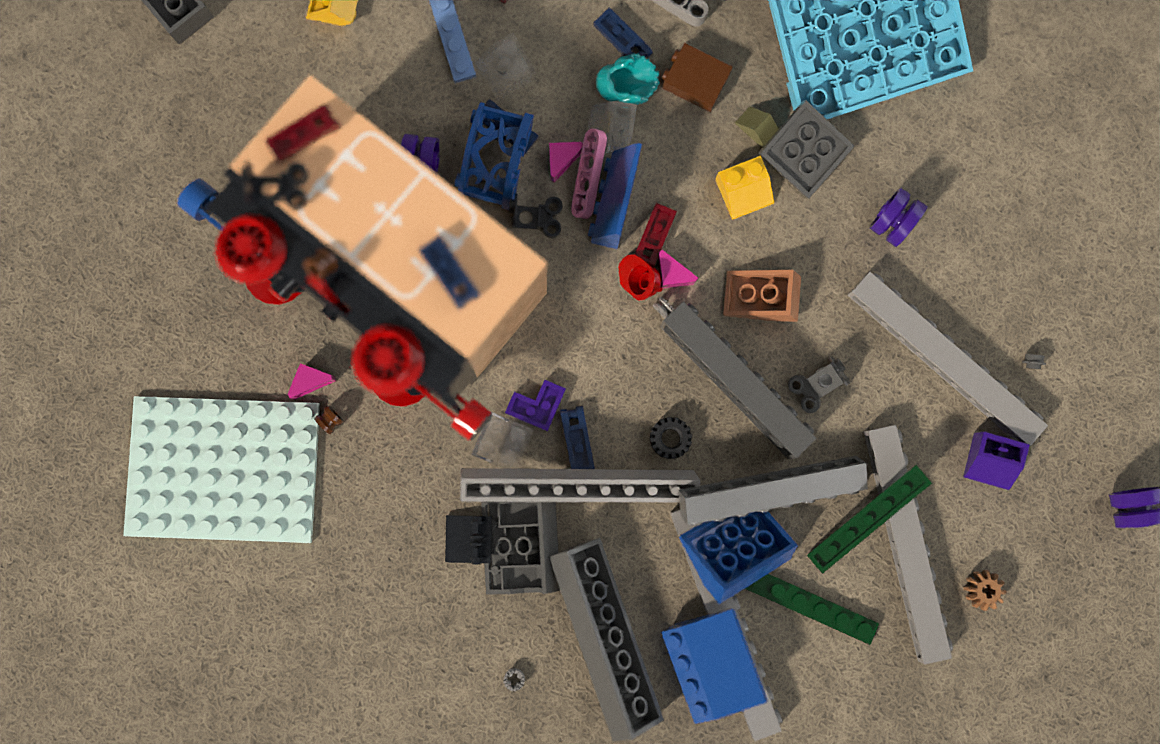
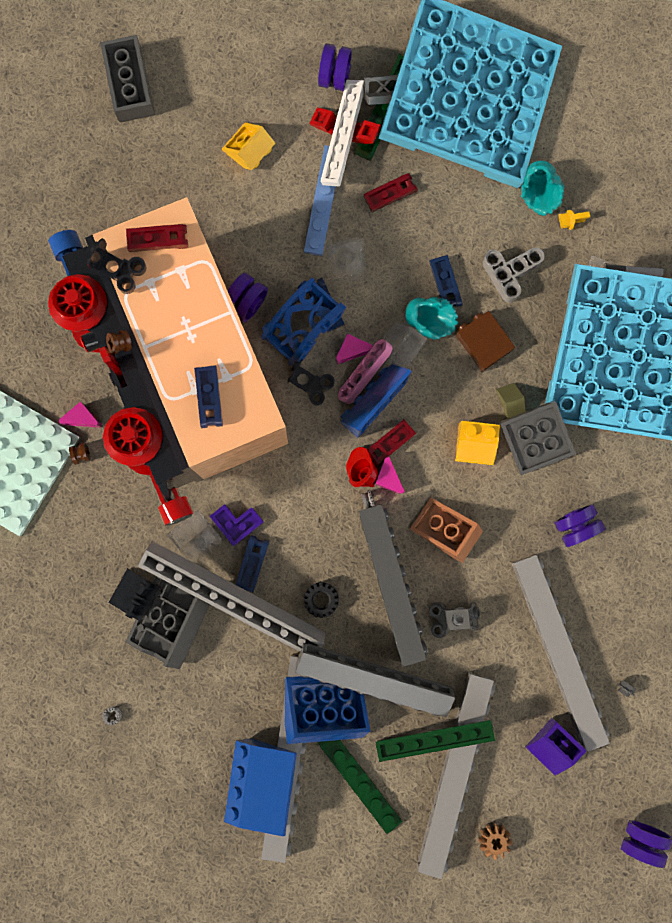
camera: 35 degrees right, 0 degrees up
(606, 640) = (192, 725): dark grey brick -> none

